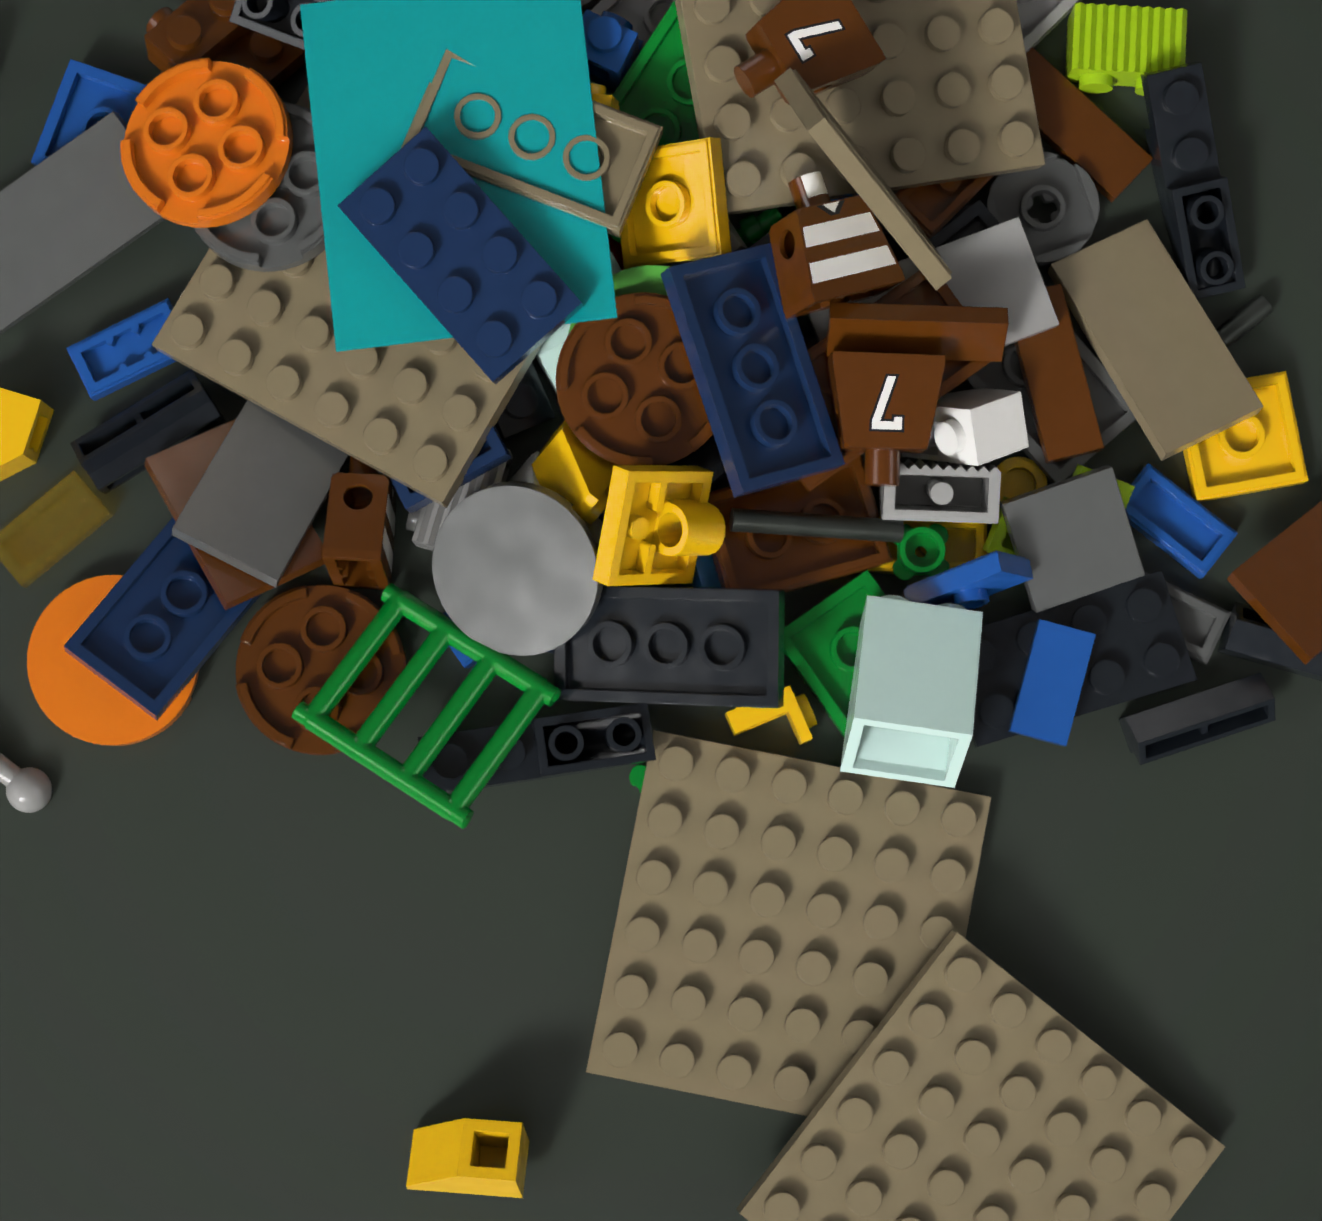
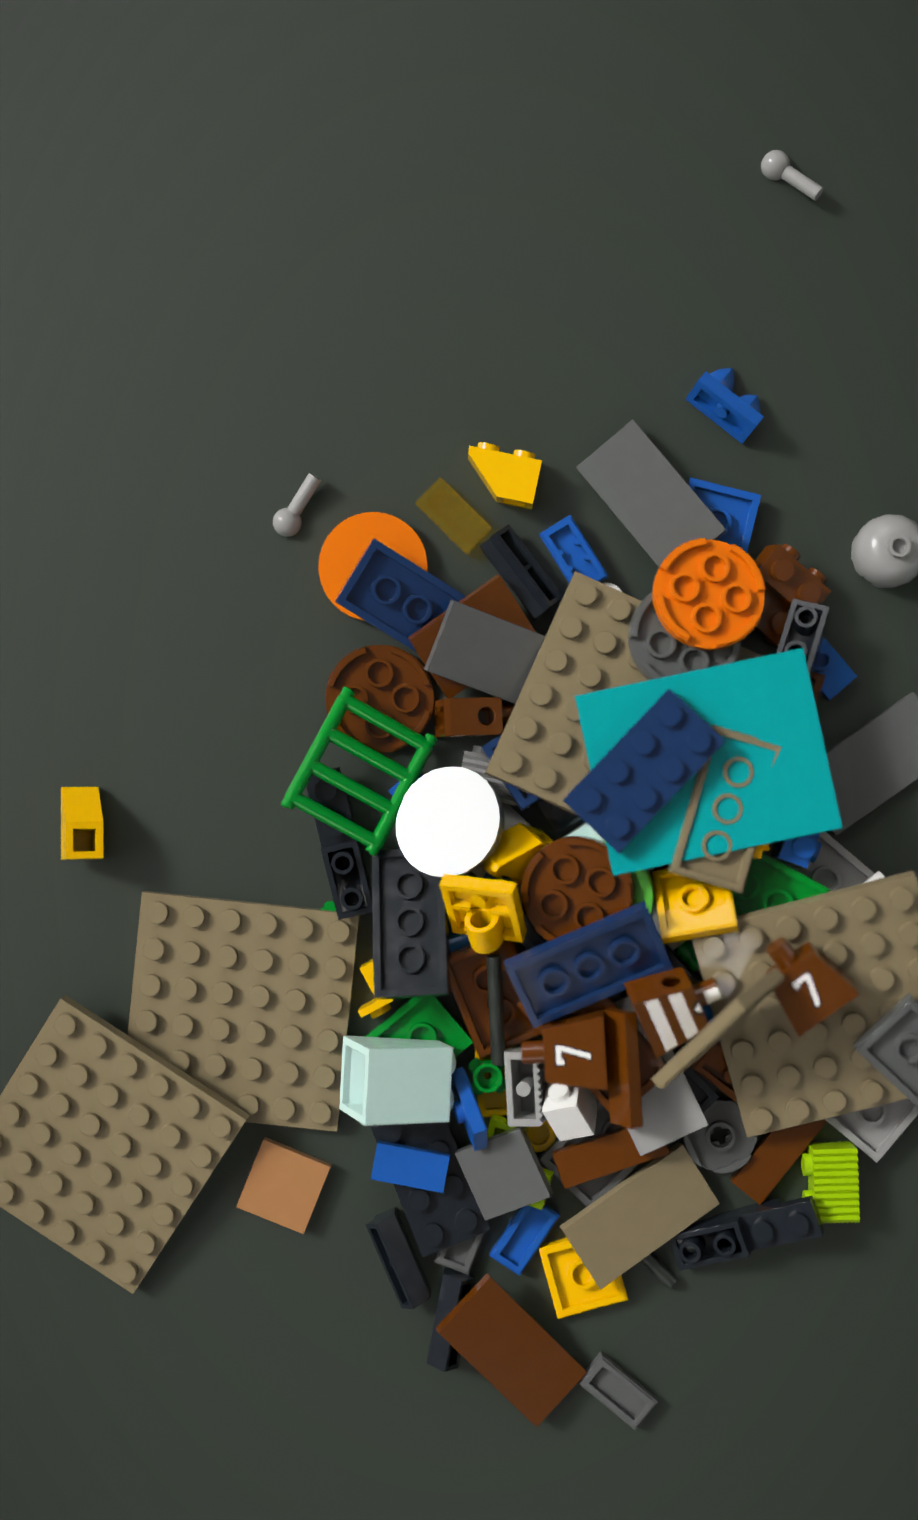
camera: 85 degrees right, 5 degrees up
(1070, 889) = (283, 1185): none -> medium nougat tile

